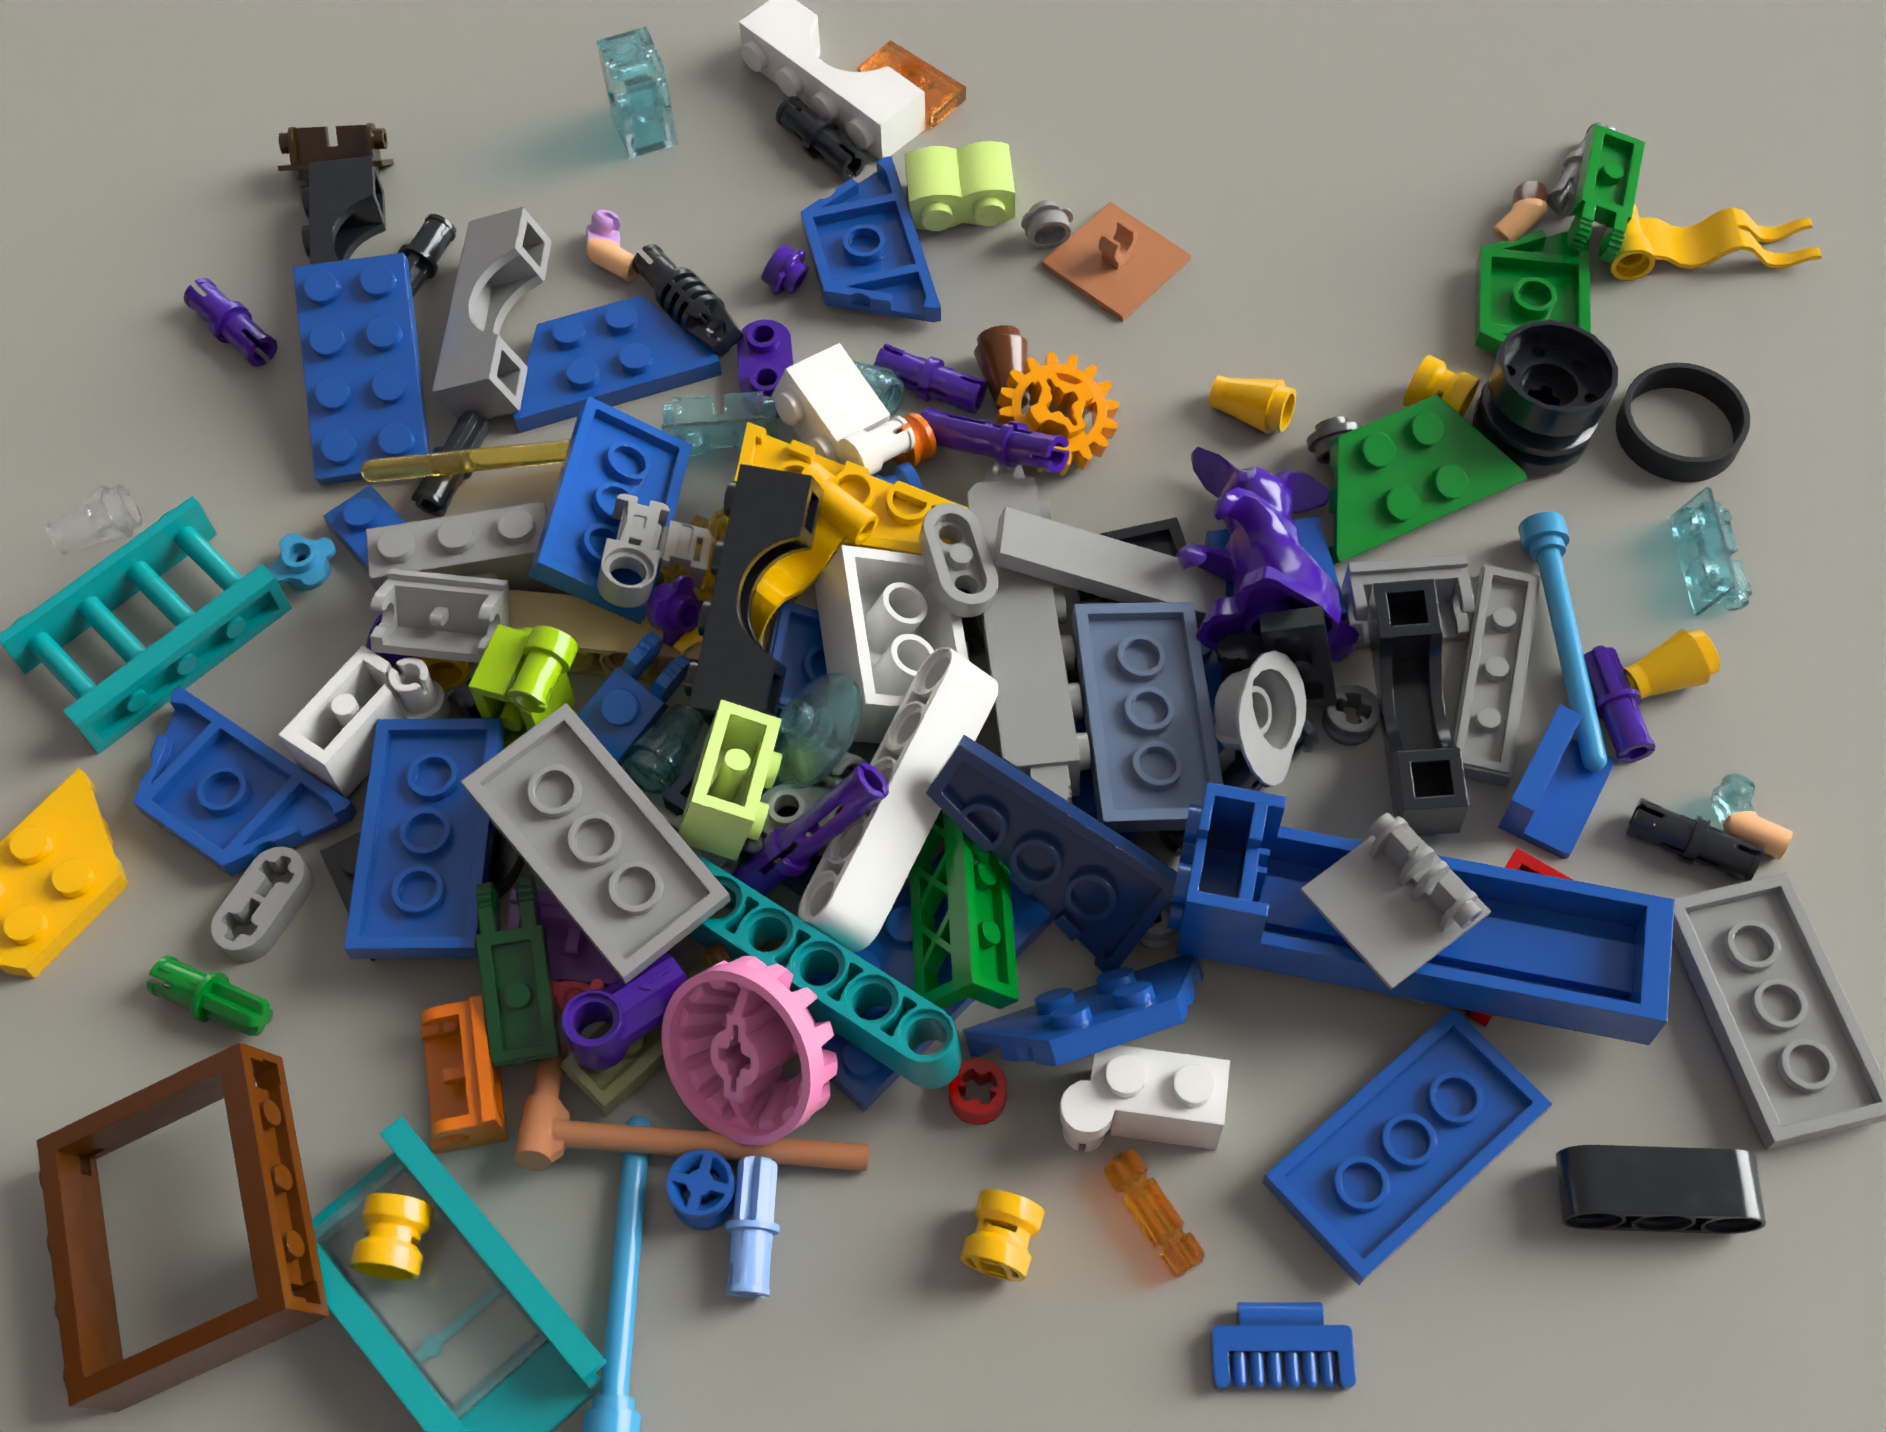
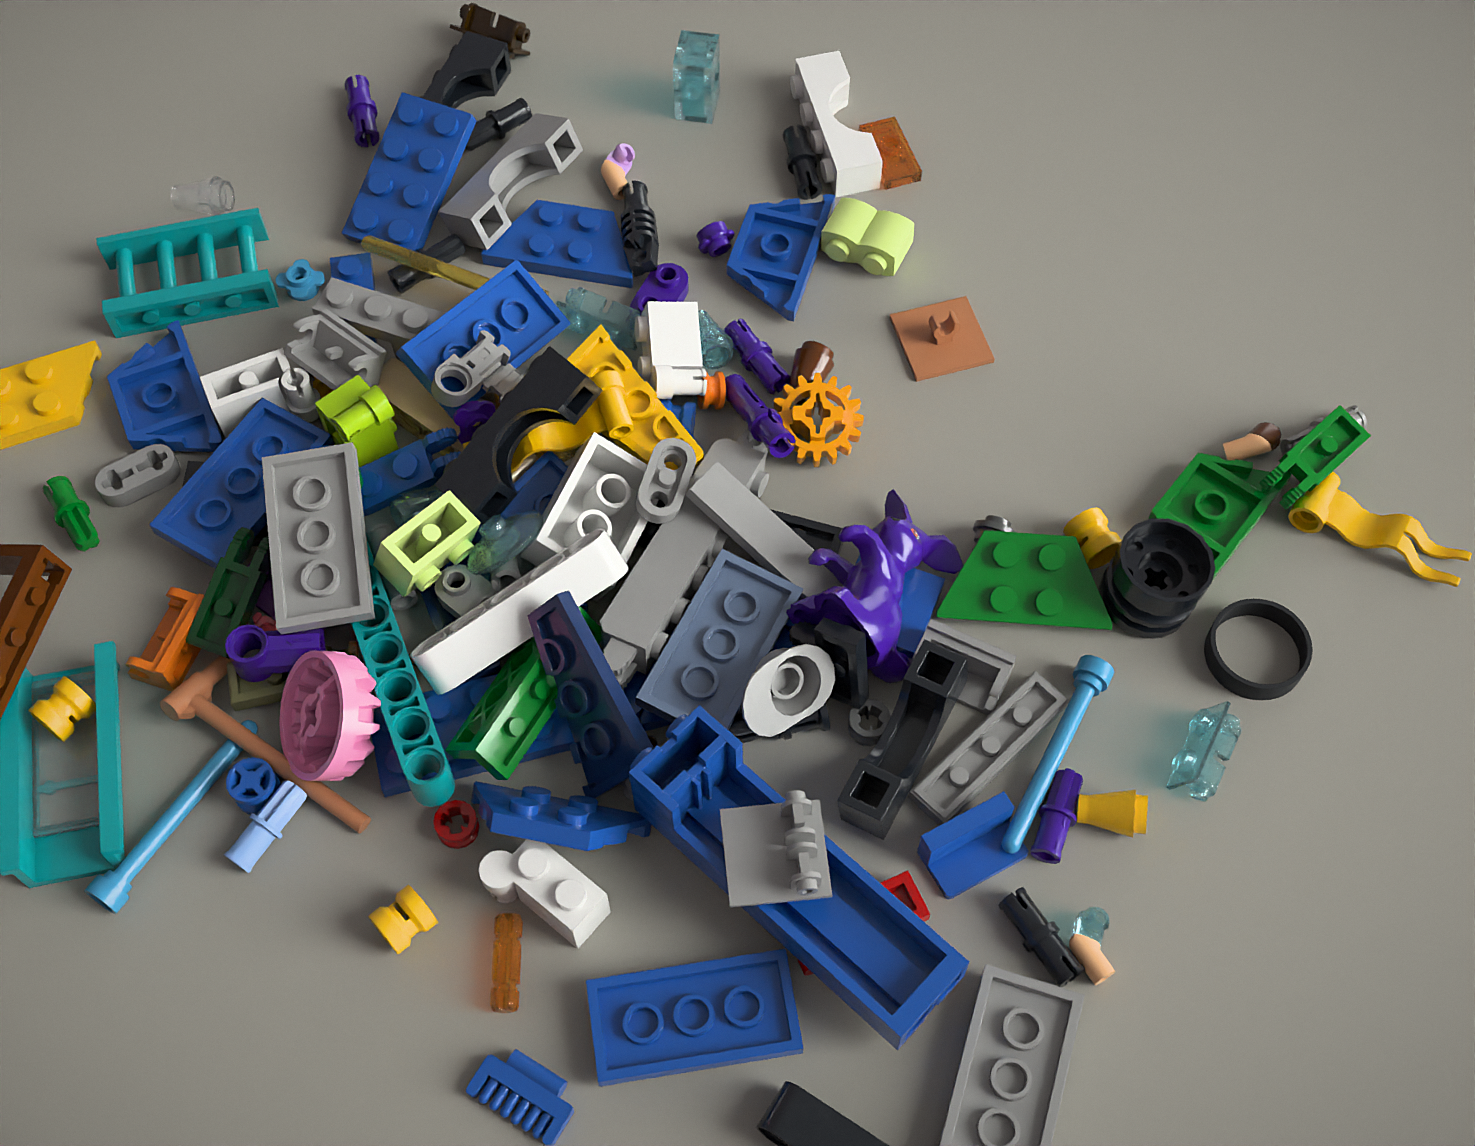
camera: 30 degrees right, 0 degrees up
(854, 793) = (438, 607): dark purple pin -> none
(1047, 224) = (907, 290): light grey plate -> none
(1257, 402) = (961, 482): yellow cone -> none

